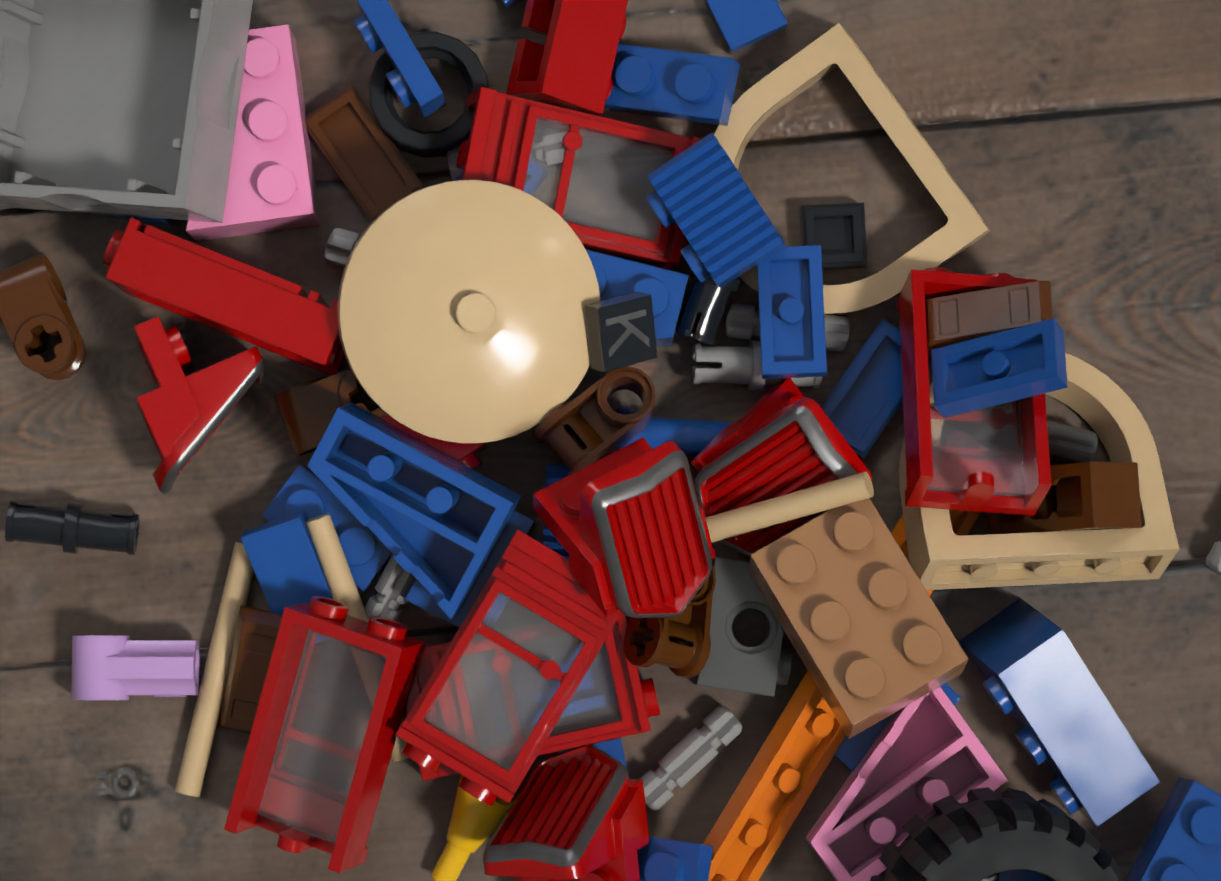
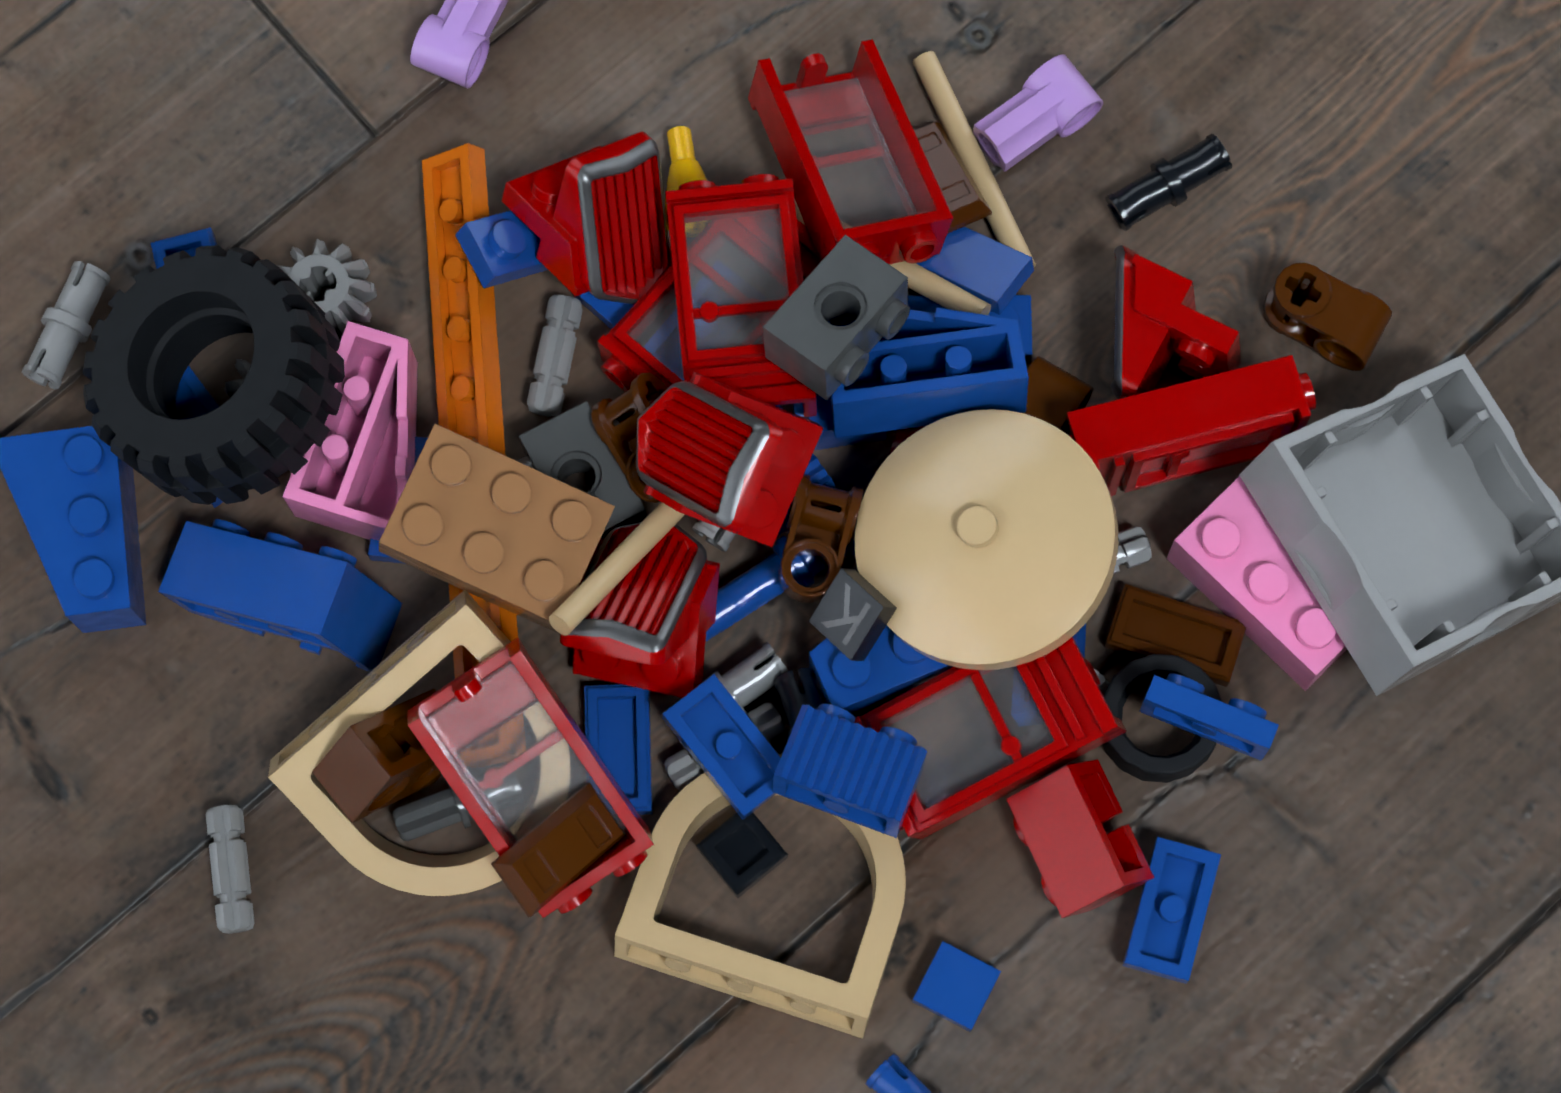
camera: 150 degrees right, 10 degrees down
(426, 593) = (843, 284): none -> dark grey brick
(673, 84) = (968, 872): blue plate -> none
(999, 368) = (519, 802): blue plate -> none

